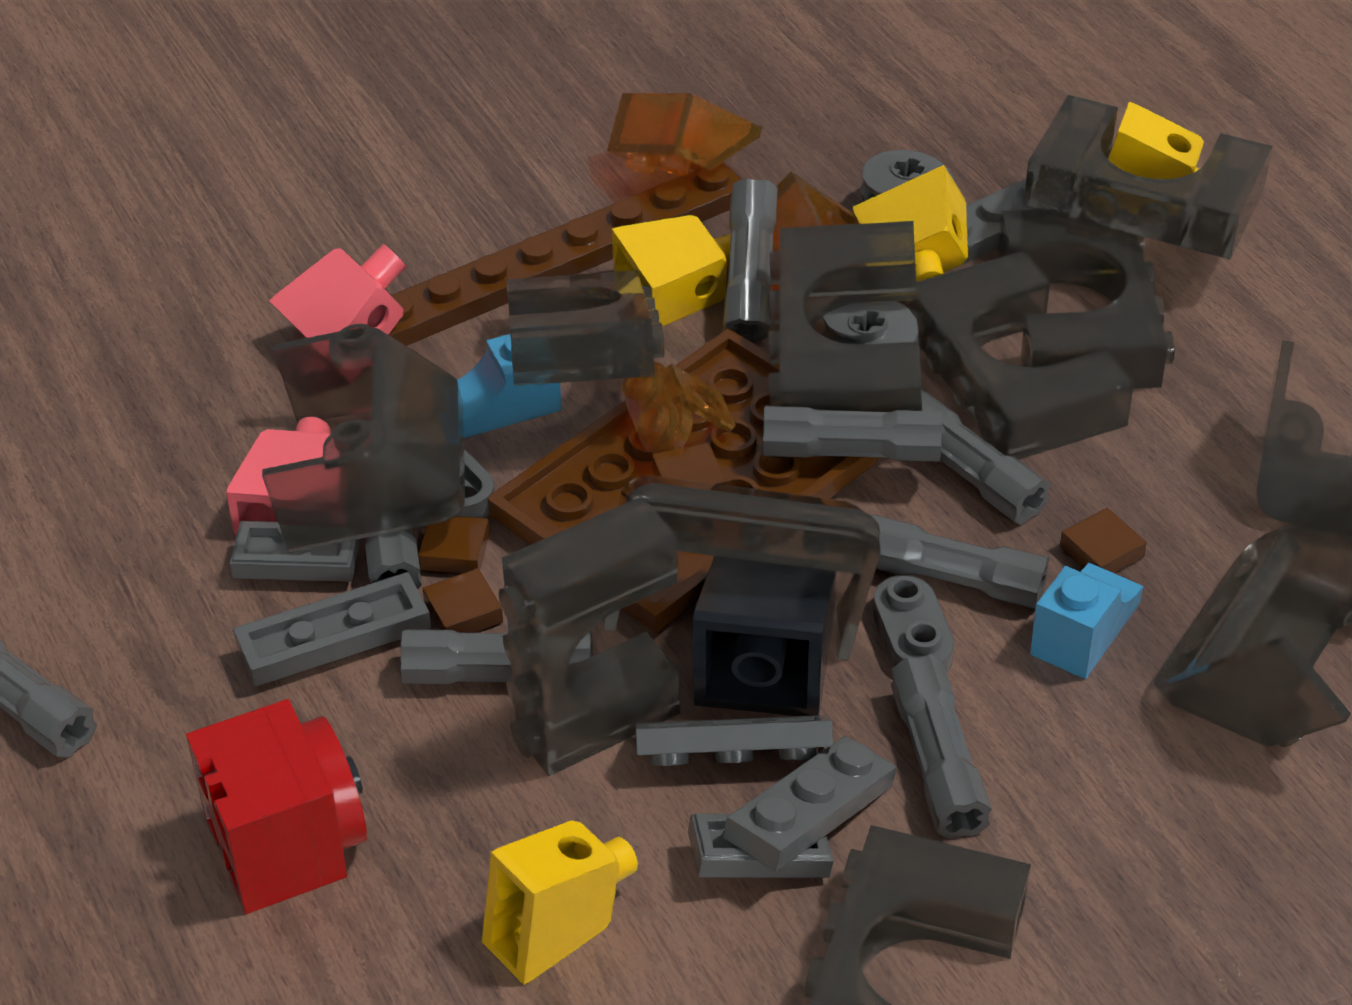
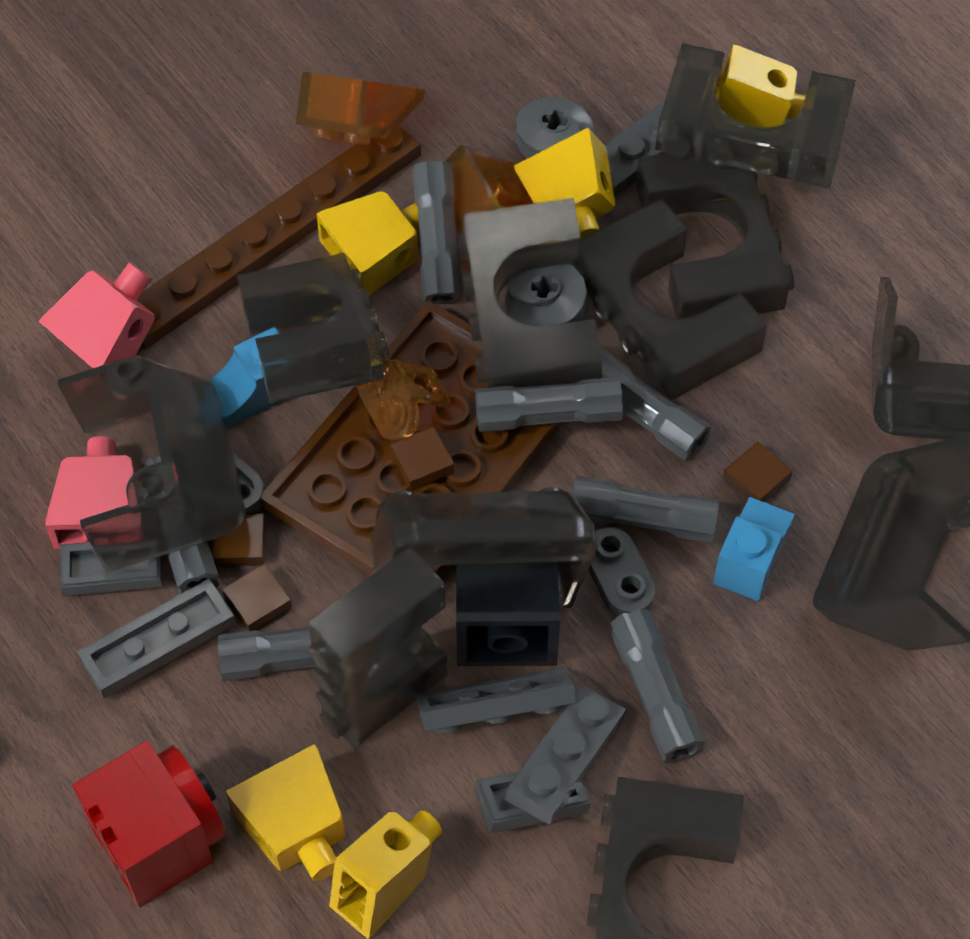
camera: 10 degrees left, 15 degrees up
(449, 822) = (291, 813): none -> yellow torso

